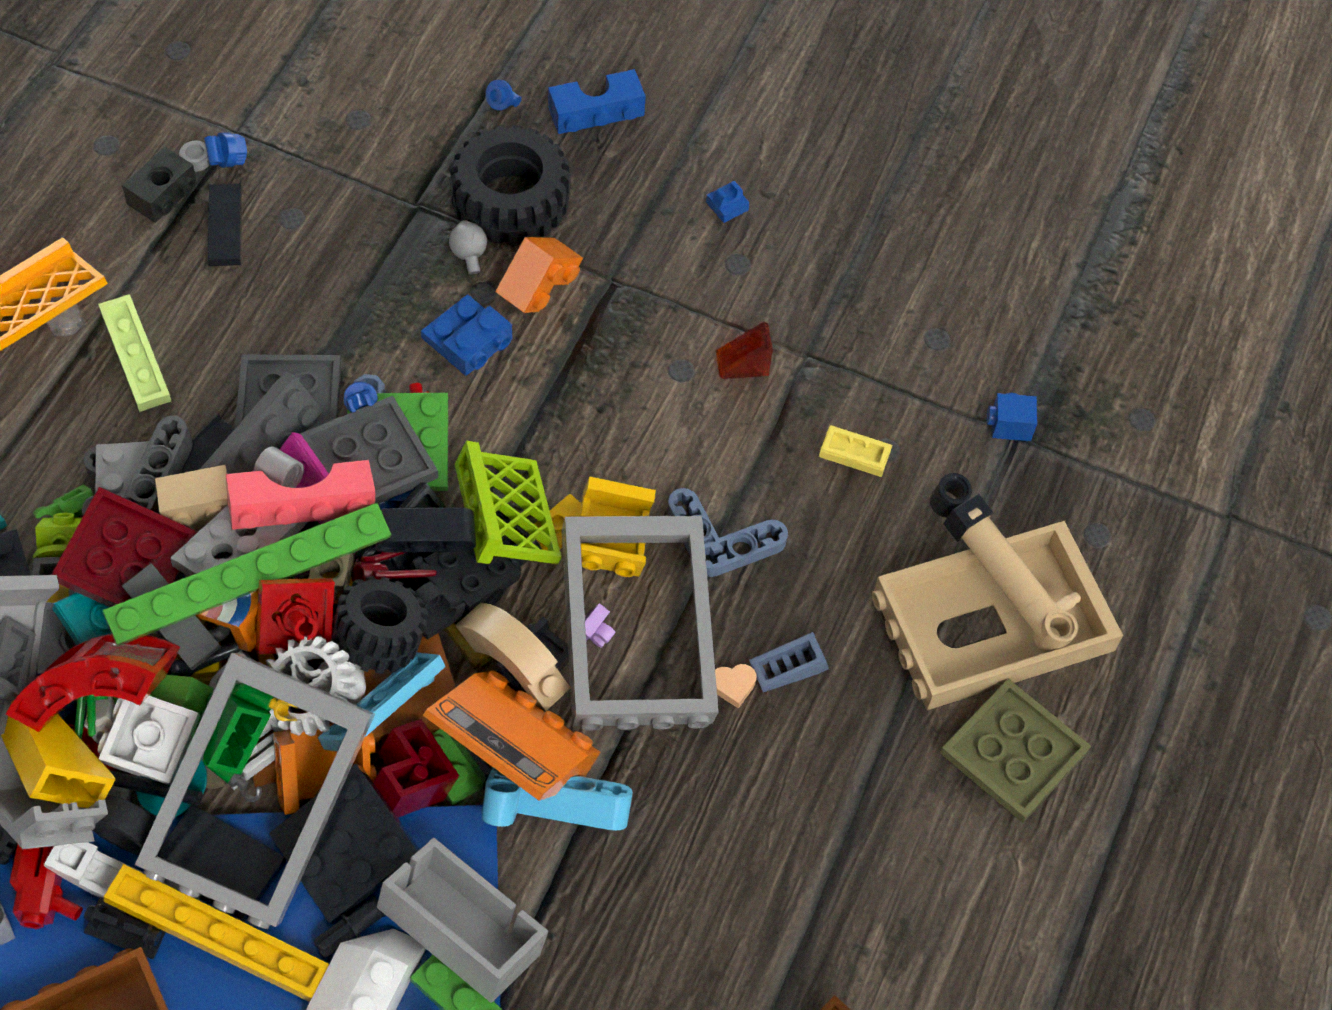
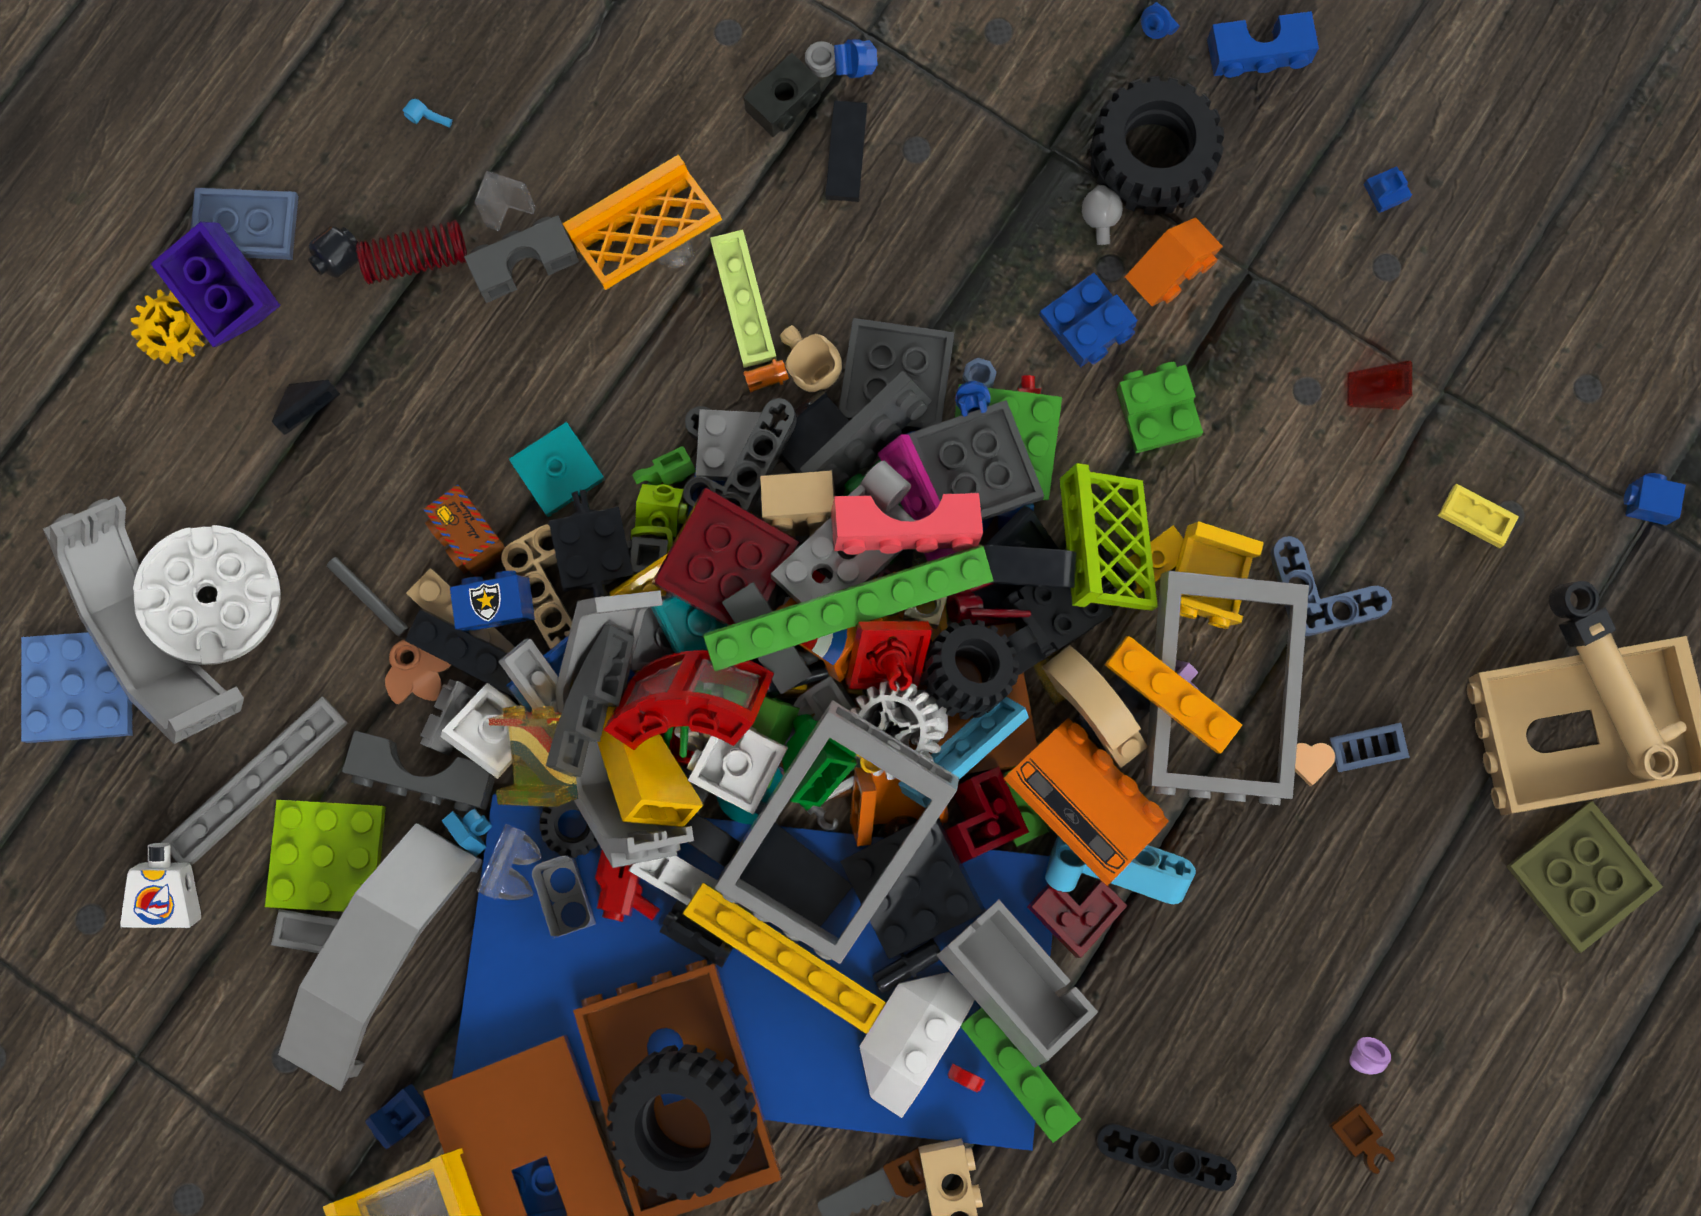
camera: 15 degrees right, 20 degrees up
(153, 416) = (766, 375): none -> orange pin
(204, 393) = (812, 361): none -> tan hair
(519, 862) = (1077, 923): none -> dark red plate
(543, 397) = (1159, 407): none -> bright green plate
(584, 625) = (1173, 694): none -> light orange plate
(838, 947) = (1370, 1056): none -> lavender tile

